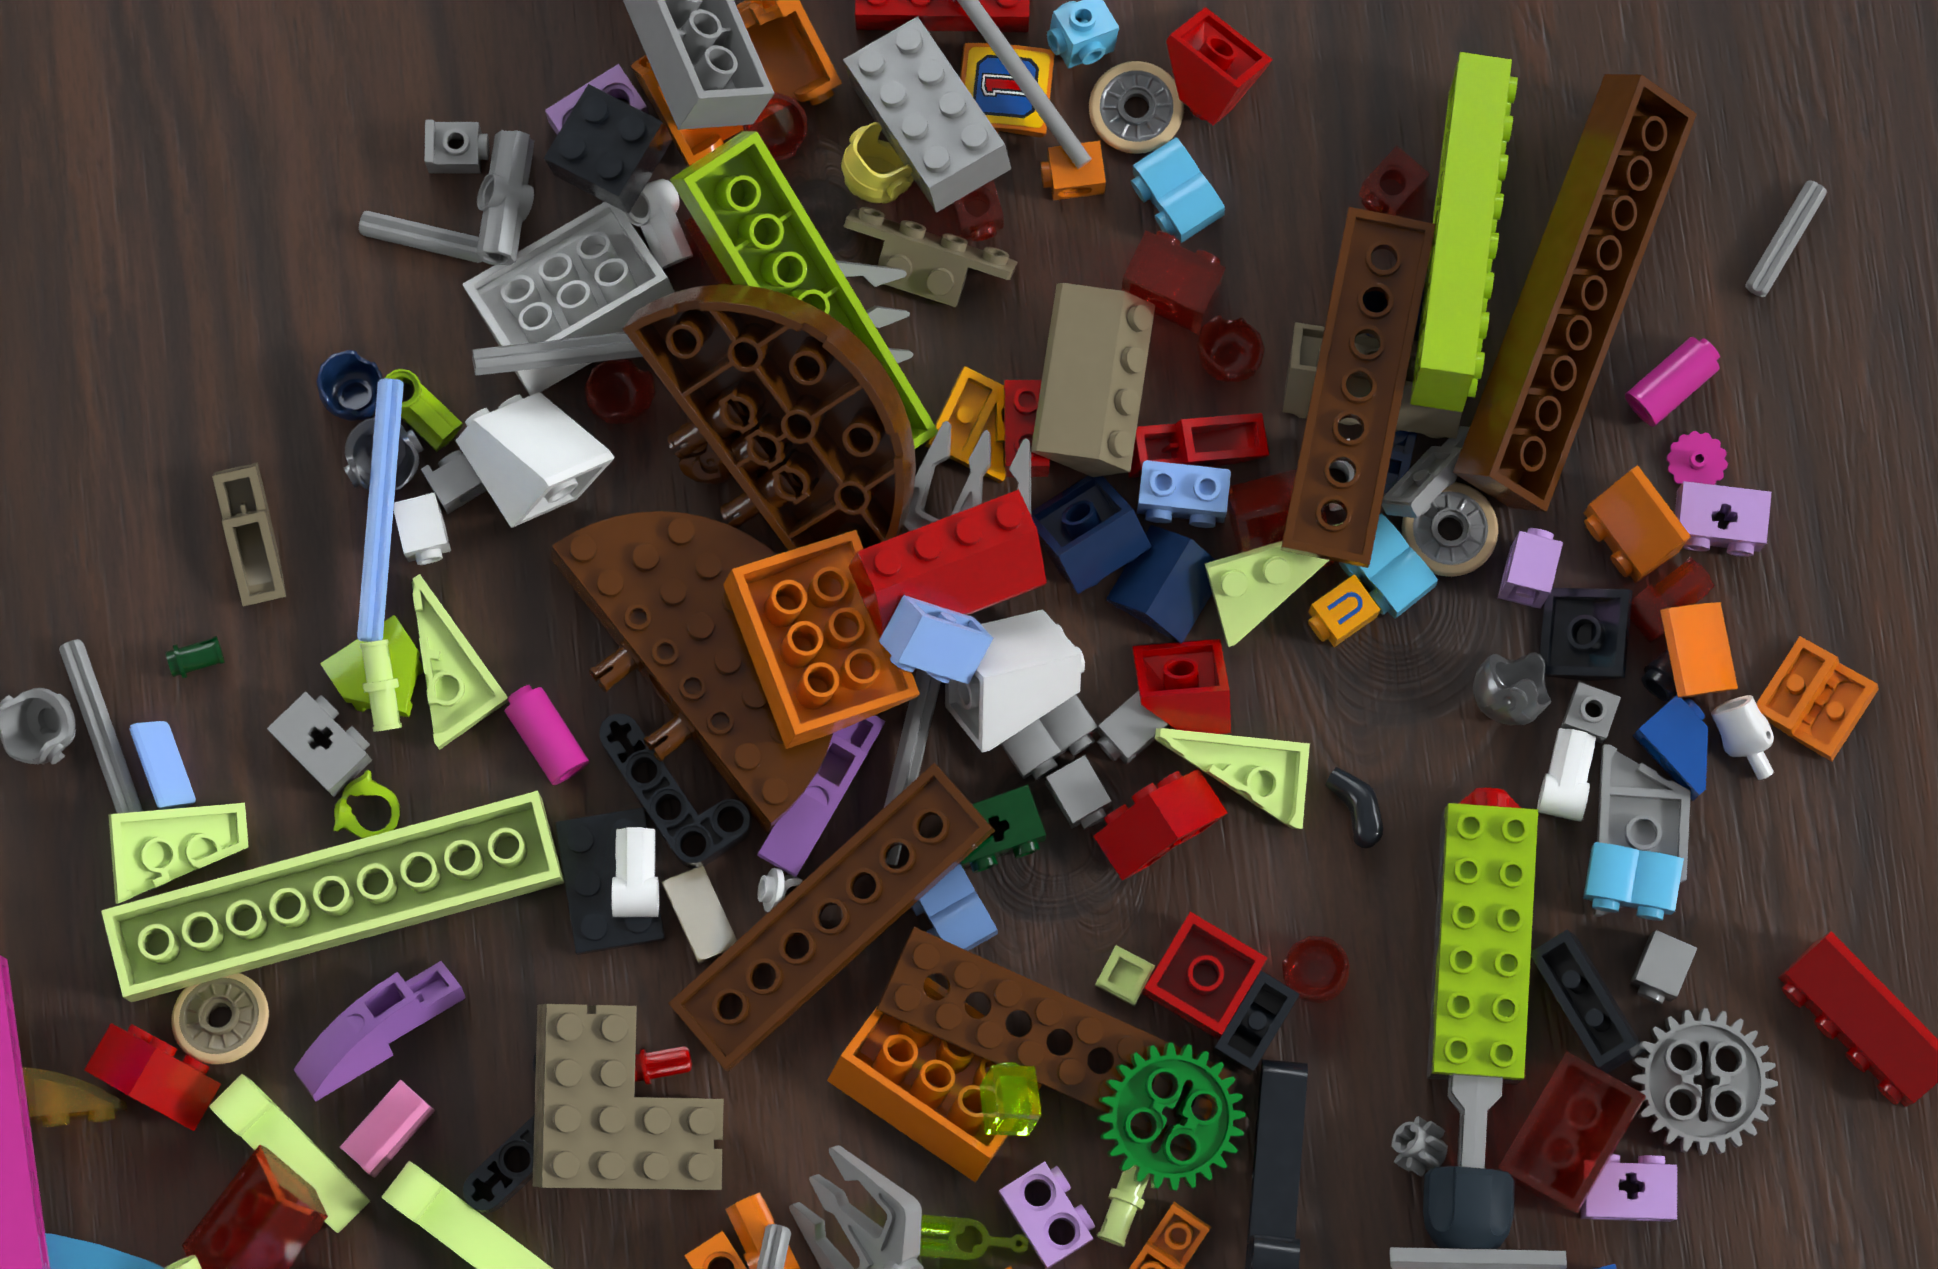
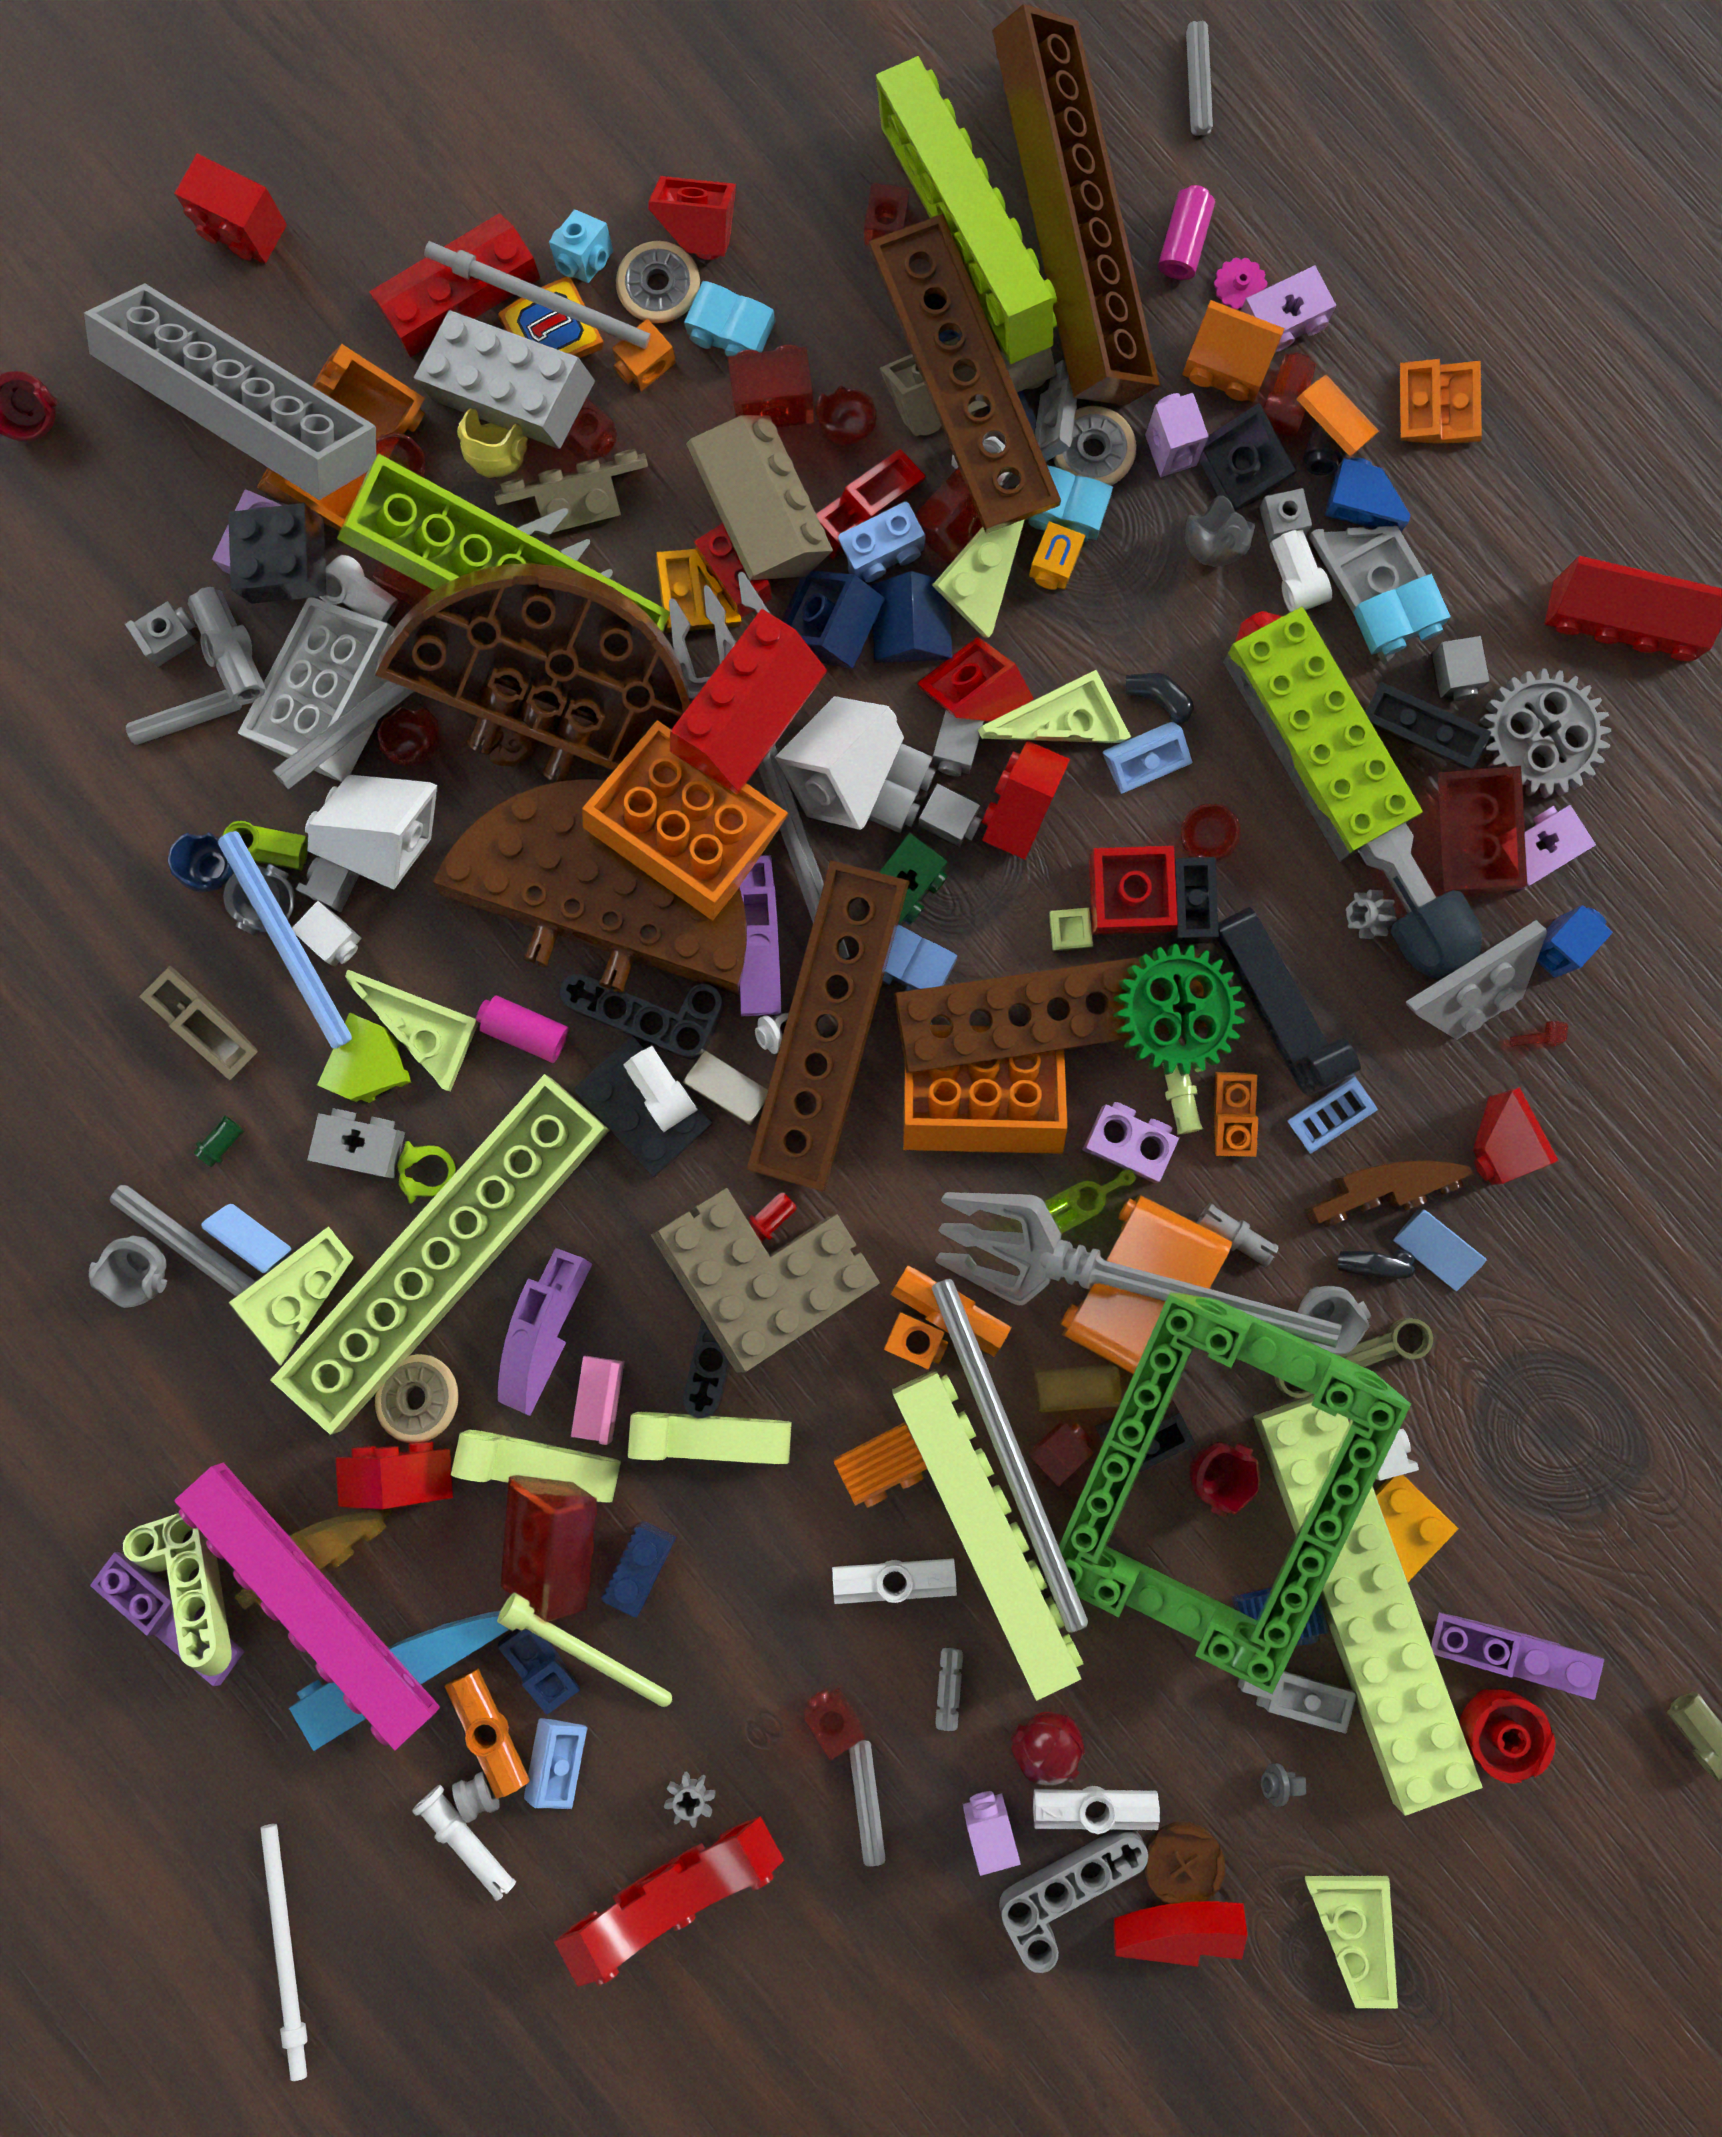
camera: 30 degrees left, 5 degrees up
(380, 685) = (372, 1071): yellowish green pin -> none
(935, 640) = (773, 764): light blue brick -> none
(1010, 1099) = (1052, 1075): clear neon green brick -> none
(1307, 858) = (1148, 756): none -> light blue slope
(1745, 732) = (1408, 457): white piece -> none

